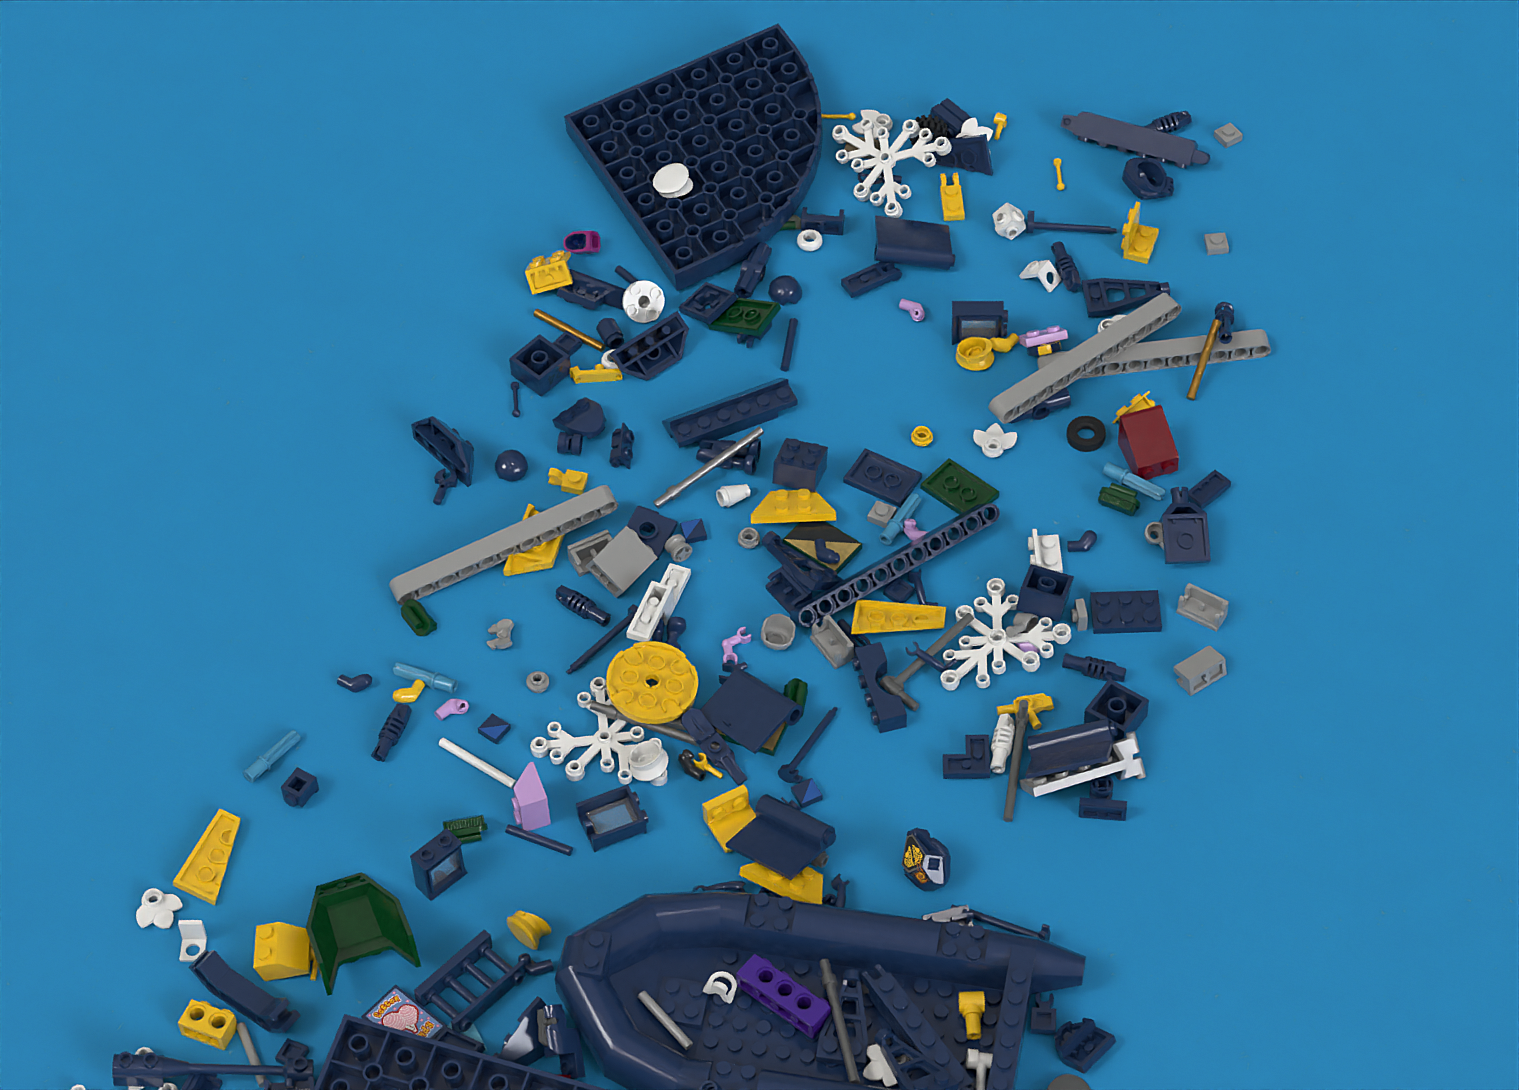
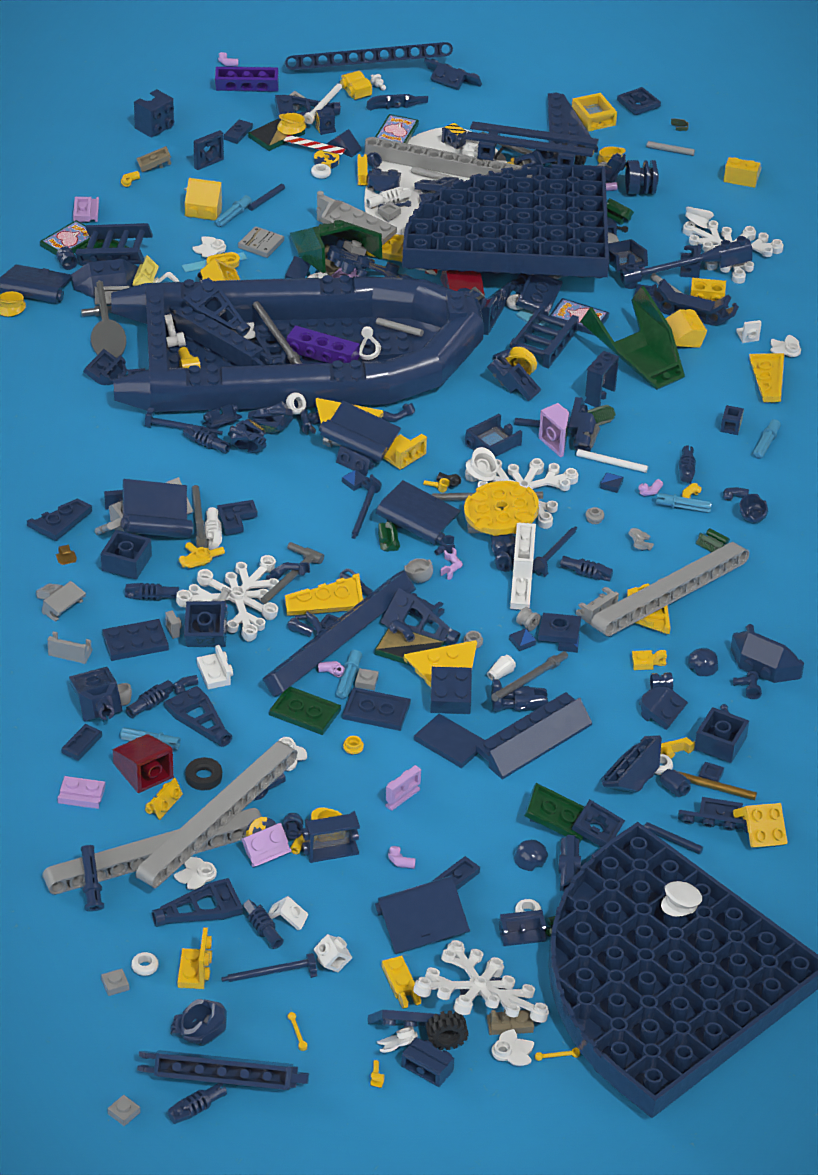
camera: 160 degrees right, 10 degrees down
(349, 645) = (753, 508): none -> dark blue hair
(477, 420) = (753, 691): none -> dark blue piece
(494, 801) = (582, 426): none -> dark blue plate
(548, 905) = (513, 377): none -> dark blue plate
(582, 242) = (745, 860): magenta rock -> none
(621, 561) = (568, 590): light grey brick -> none
(623, 441) = (614, 690): dark blue hinge -> none
(643, 301) = (660, 810): white plate -> none
(705, 735) = (442, 493): dark blue piece -> none
(789, 344) = (506, 808): dark blue bar -> none
(818, 424) = (449, 740): none -> dark blue tile
(832, 642) = (368, 574): light grey hinge -> none
(852, 903) = (301, 402): none -> white piece
(886, 892) = (272, 418): none -> dark blue helmet
(887, 709) = (312, 535): dark blue arch -> none
(888, 368) = (403, 787): none -> lavender plate
(938, 587) = (297, 626): none -> dark blue arm
(977, 892) = (206, 438): none -> dark blue hinge
(1011, 351) = (294, 829): none -> dark blue wheel
(1077, 524) = (191, 699): none -> dark blue plate
(1119, 499) = (159, 718): dark green piece -> none
(1124, 528) = (150, 698): none -> dark blue hinge
(1185, 248) = (145, 970): none -> white piece
(1185, 749) = (65, 555): none -> pearl gold piece
(1185, 794) = (62, 520): none -> dark blue wing
(1203, 359) = (105, 842): pearl gold bar -> none
(1214, 687) = (47, 590): none -> light grey plate
(1217, 438) = (81, 792): none -> lavender plate

